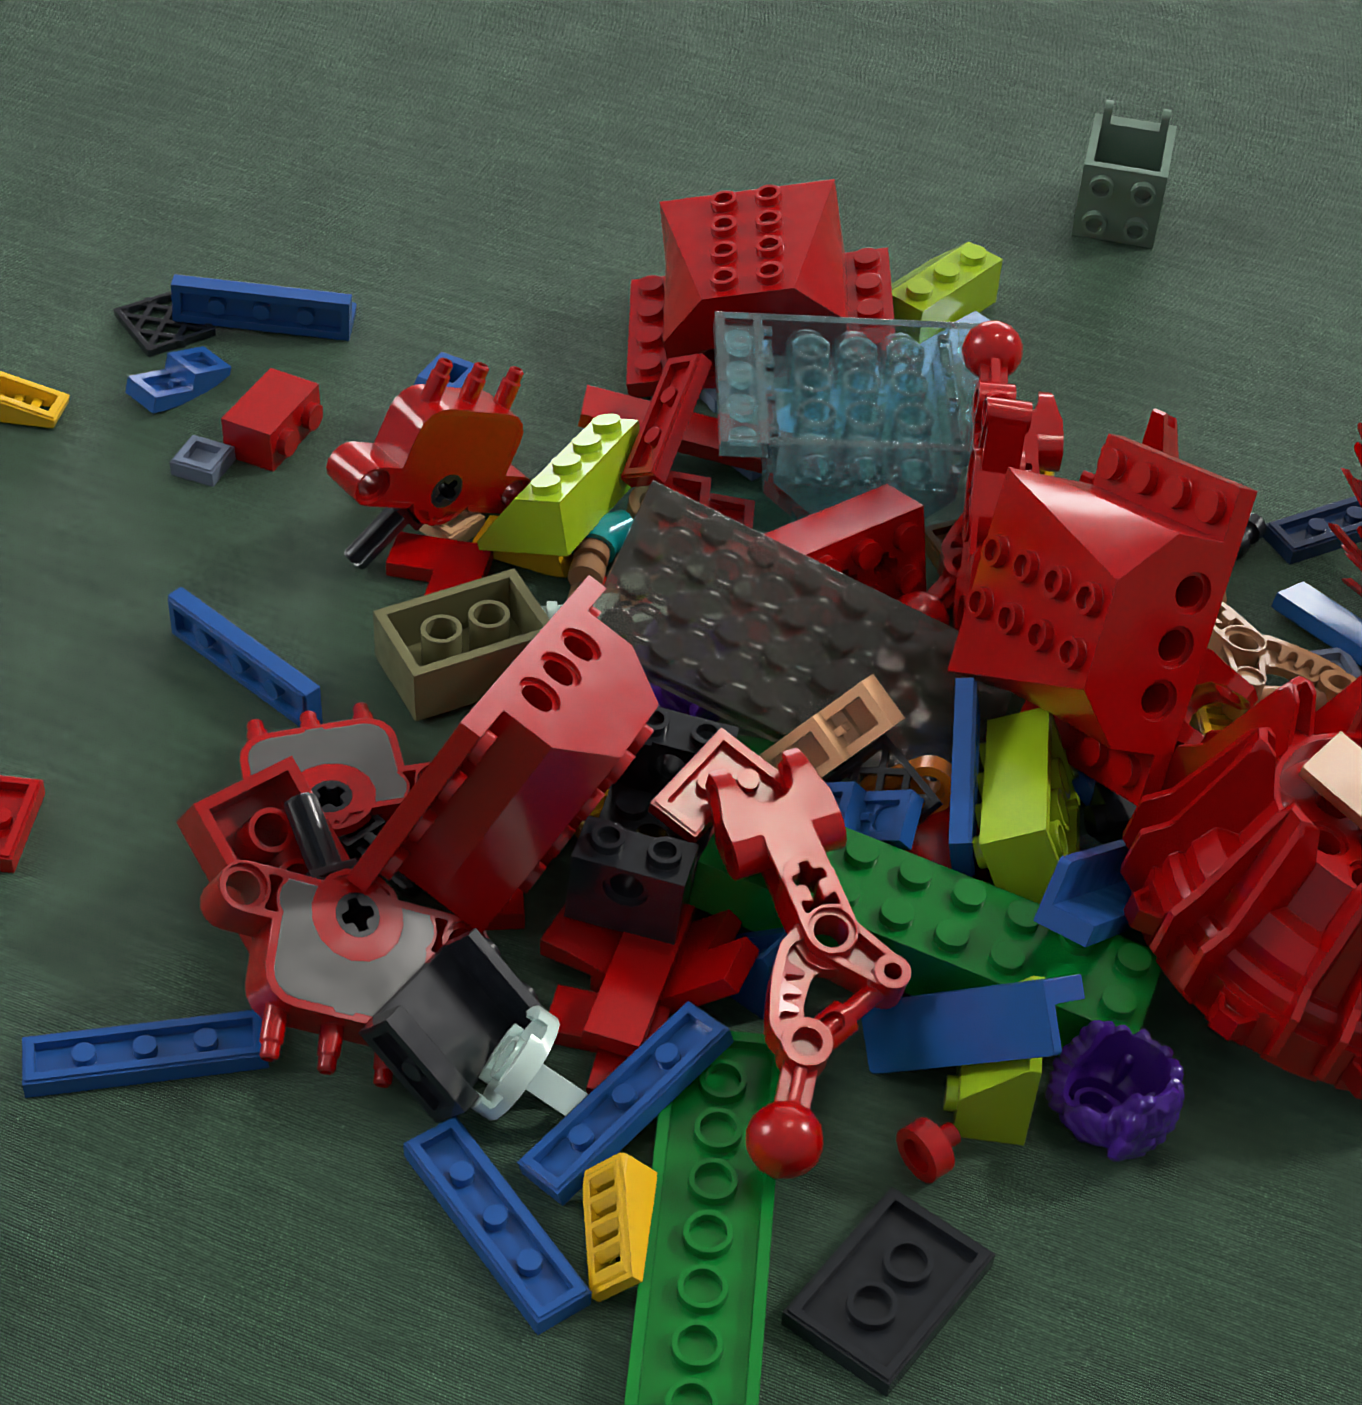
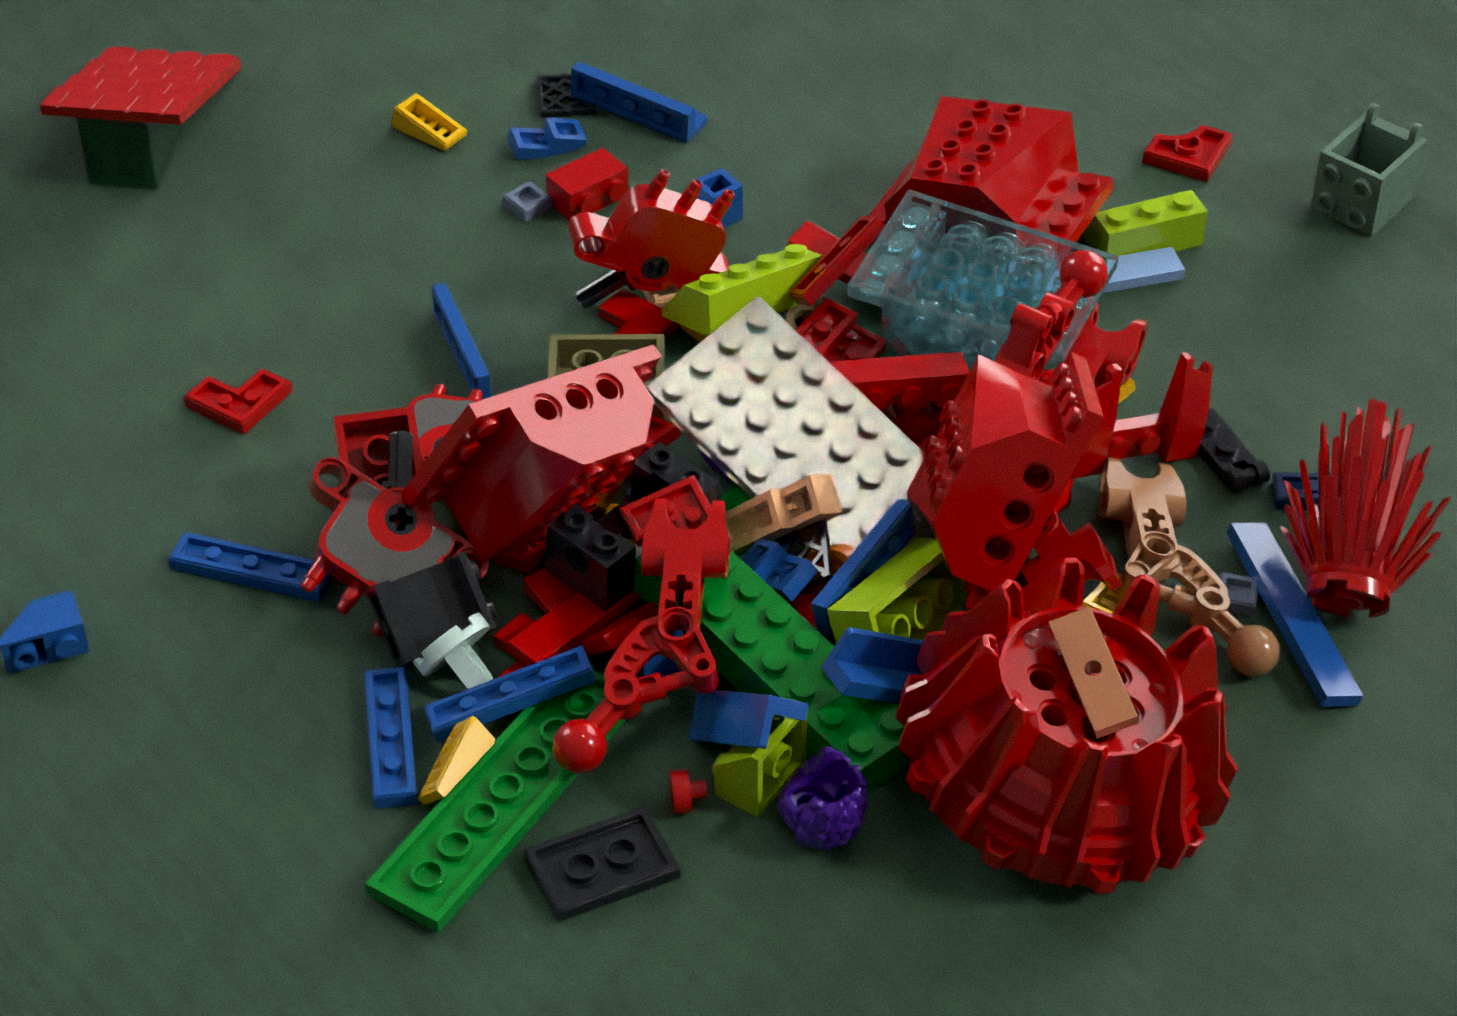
camera: 30 degrees right, 0 degrees up
(914, 208) = (1189, 154): none -> red tile

